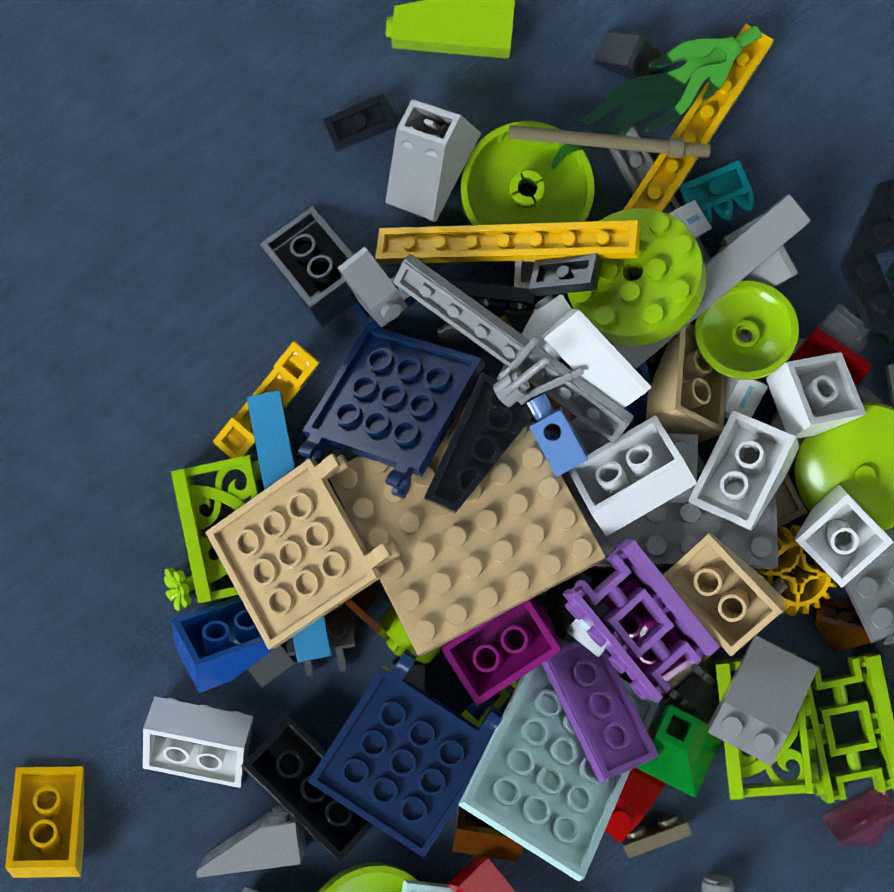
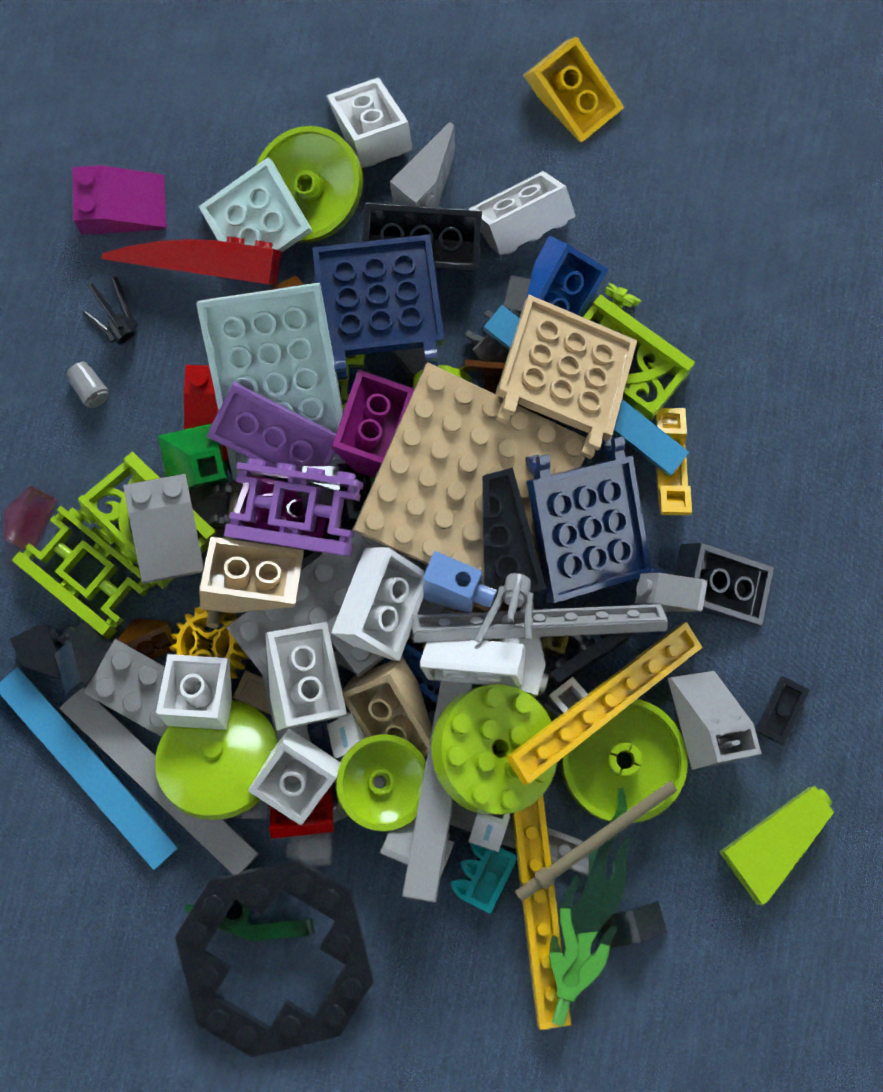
camera: 140 degrees right, 10 degrees down
(565, 275) = (545, 706): black plate -> none
(667, 831) = (159, 400): dark tan plate -> none

